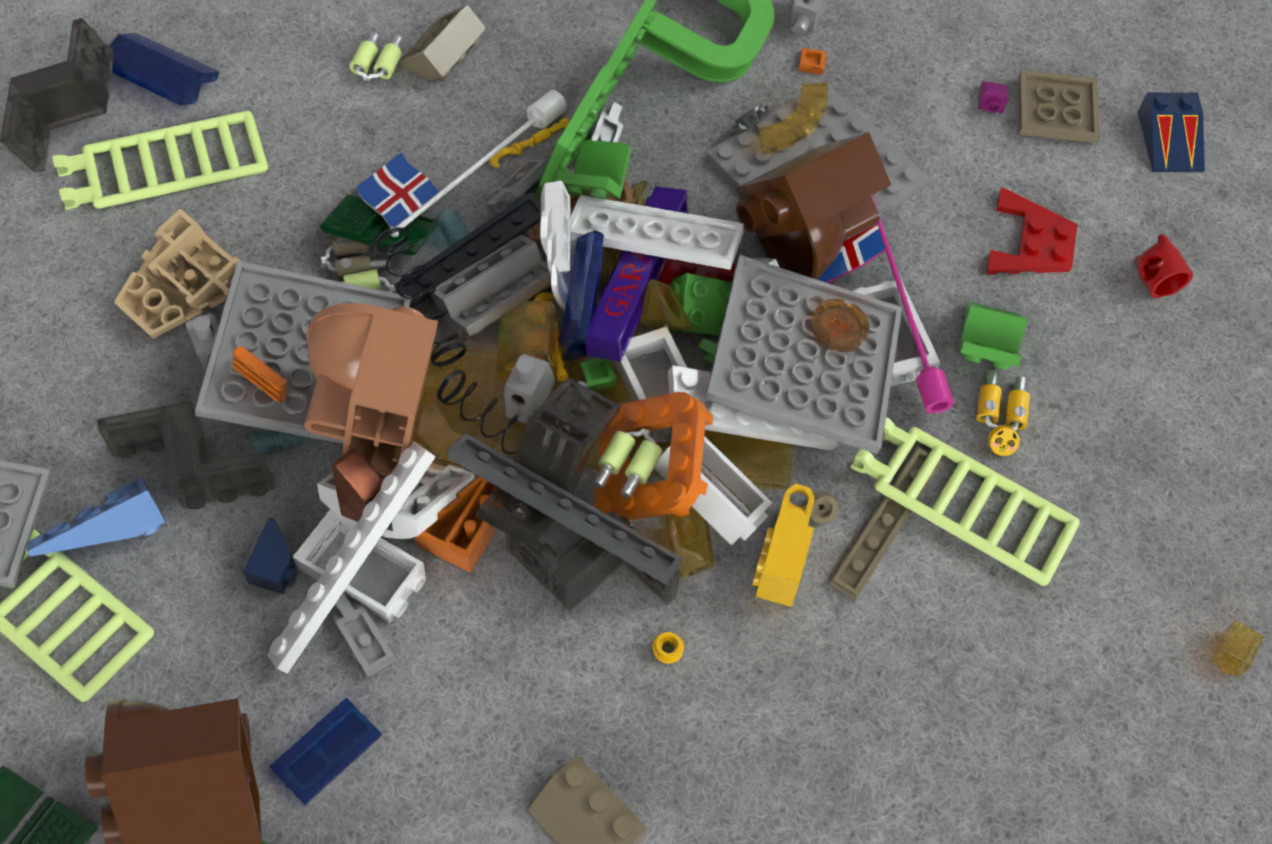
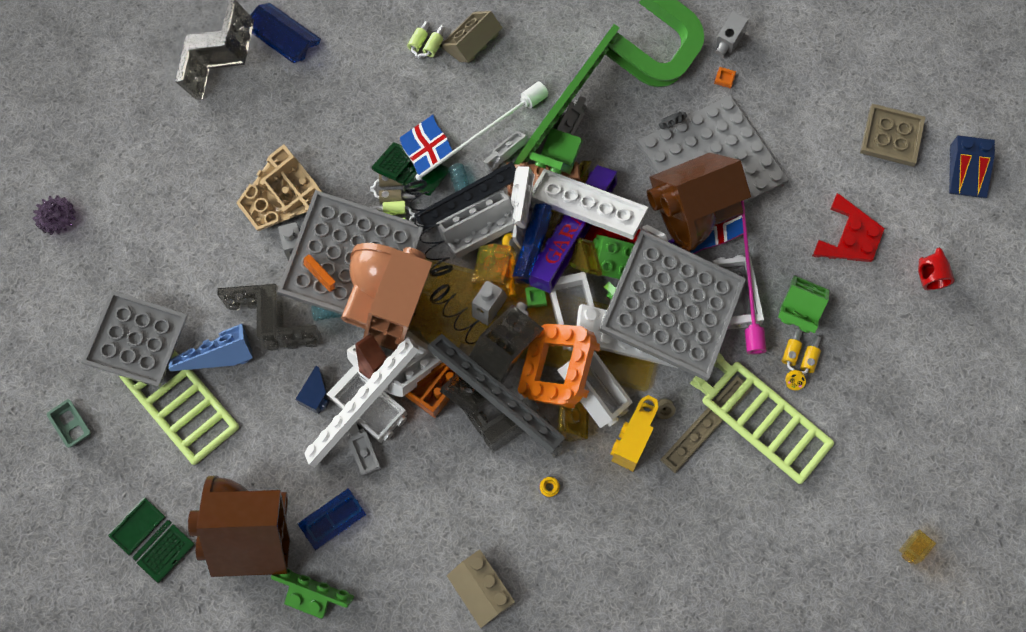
camera: 15 degrees right, 10 degrees up
(93, 193) = (231, 120): yellowish green bar -> none
(516, 148) = (524, 115): yellow piece -> none
(640, 465) = (550, 369): yellowish green piece -> none
(799, 123) = (706, 127): clear yellow tile -> none
(840, 325) = (699, 288): clear orange tile -> none
(993, 97) = (847, 121): magenta bracket -> none

